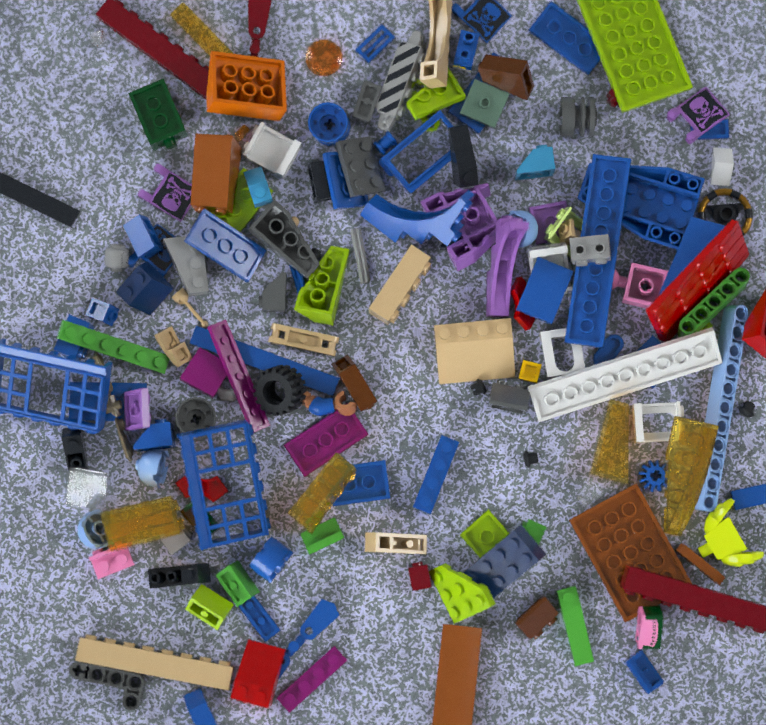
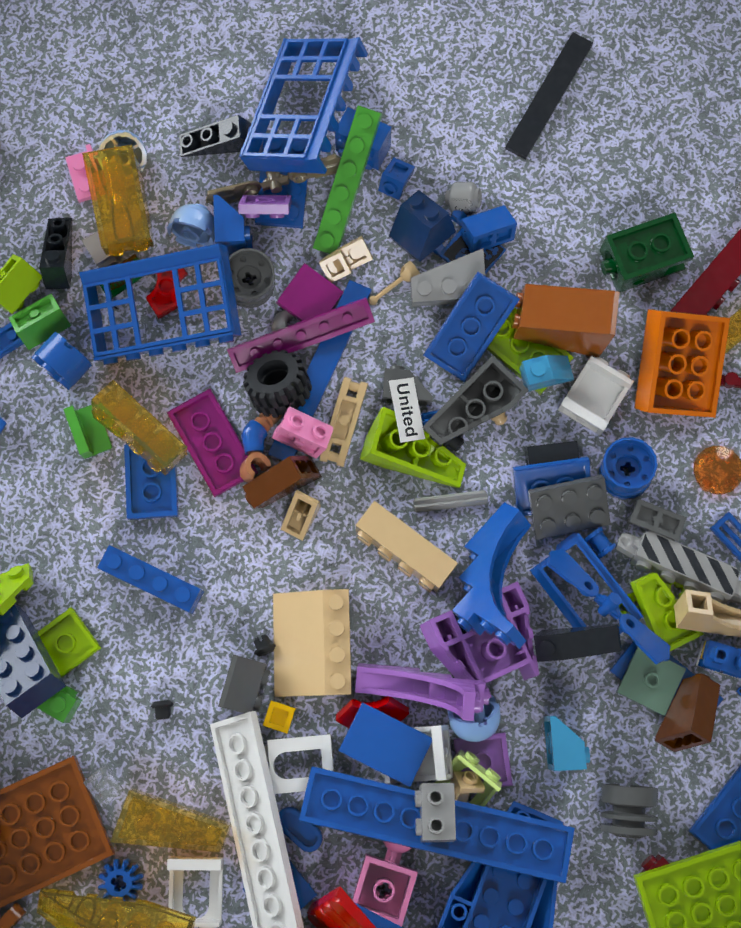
camera: 95 degrees right, 5 degrees down
(86, 488) = (176, 148): clear tile -> none
(171, 195) = (542, 265): flag -> none
(241, 133) = (616, 355): clear orange arm -> none
(294, 290) = (406, 409): none -> white sticker
(317, 367) = (303, 433): none -> bright pink bracket
(379, 367) = (300, 515): none -> tan slope
(395, 543) = (67, 521): tan slope -> none
(412, 161) = (574, 574): none -> blue piece
(419, 576) = (20, 549): dark red brick -> none

